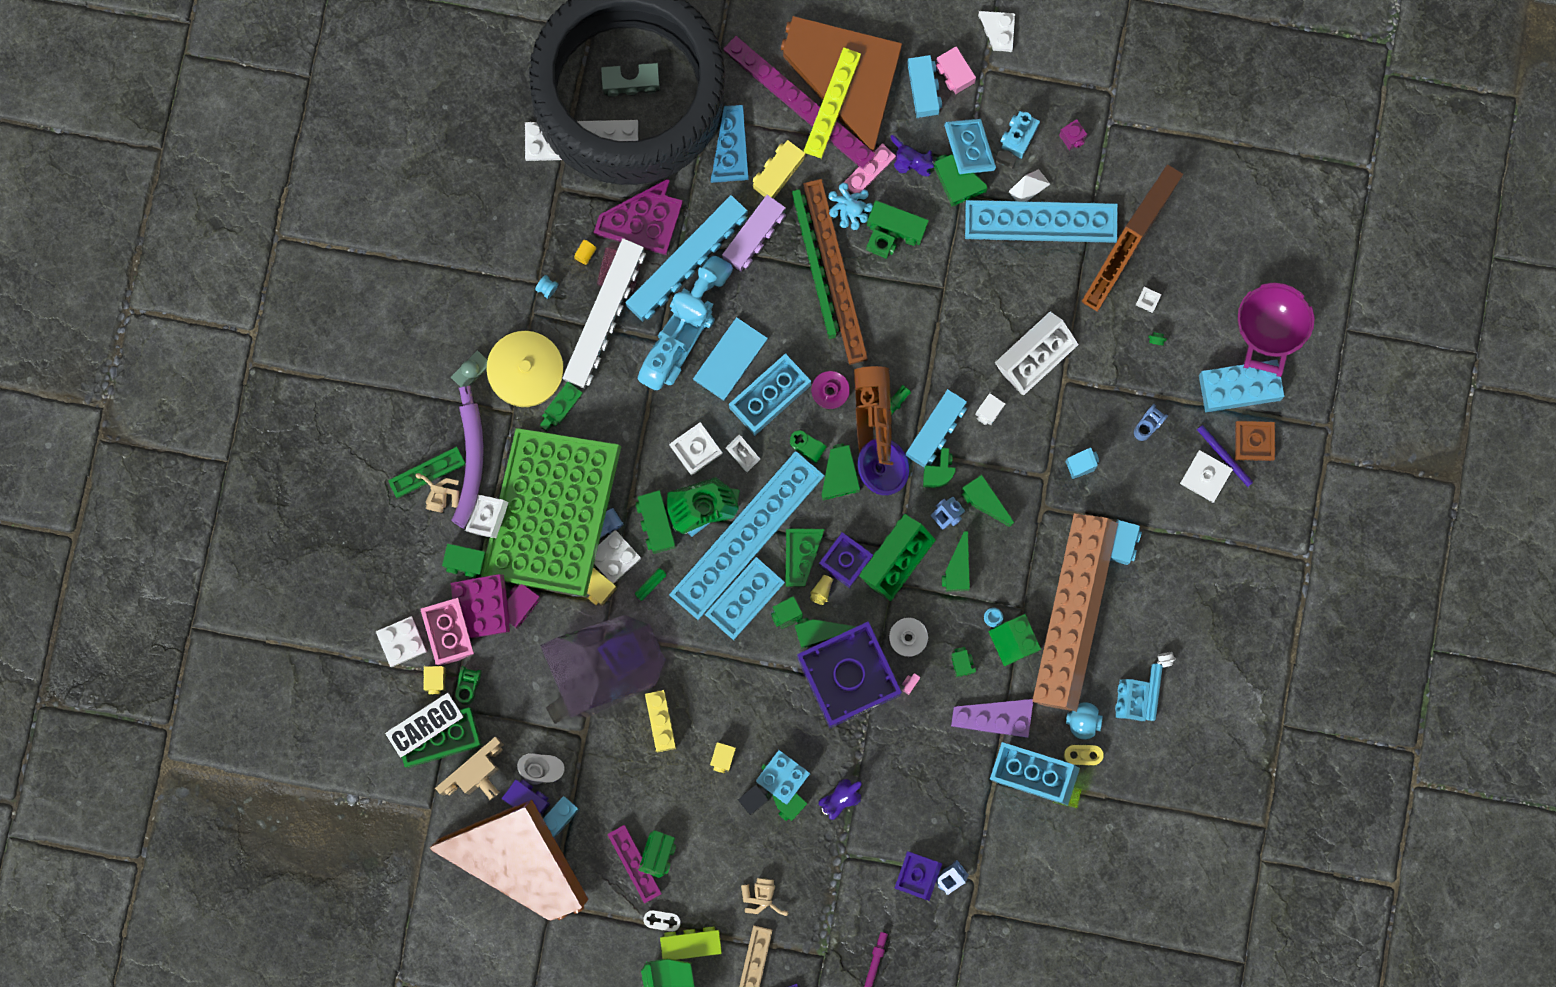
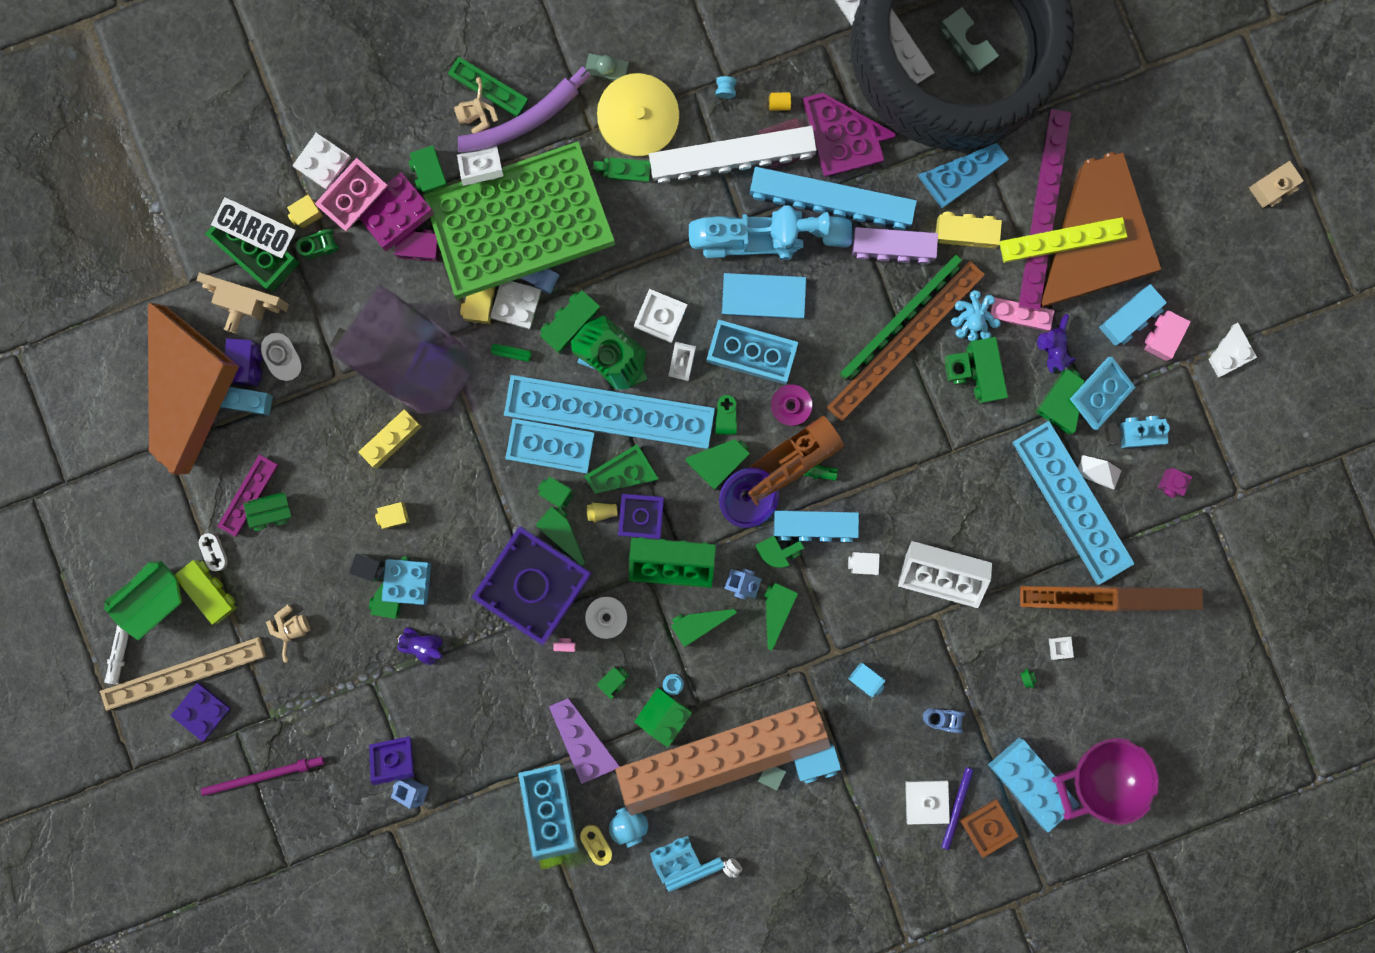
camera: 55 degrees right, 5 degrees up
(1113, 584) = (772, 777): none -> sand green tile

